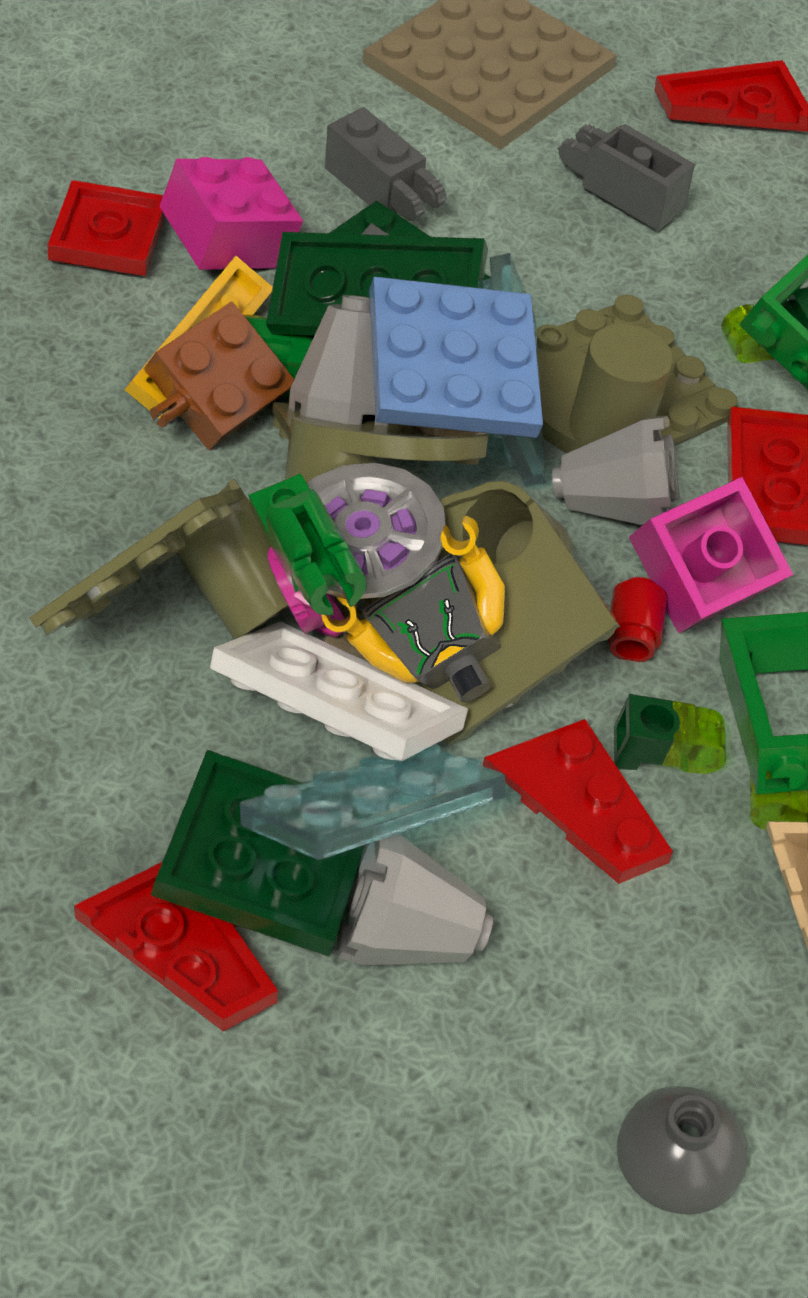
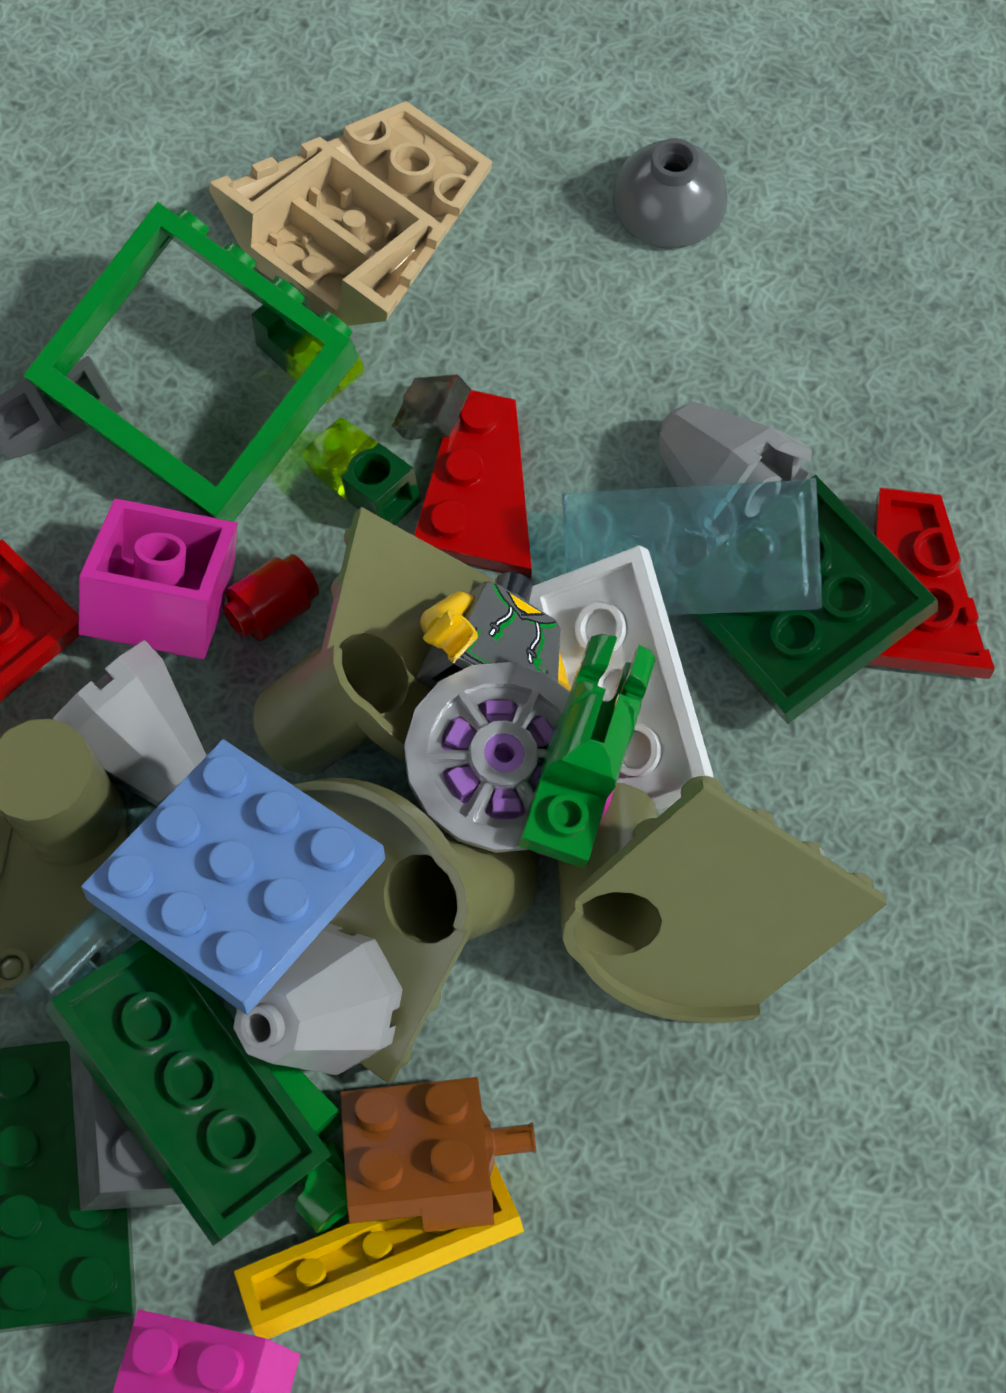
camera: 135 degrees left, 15 degrees up
(674, 818) = (431, 407): none -> clear smoke plate

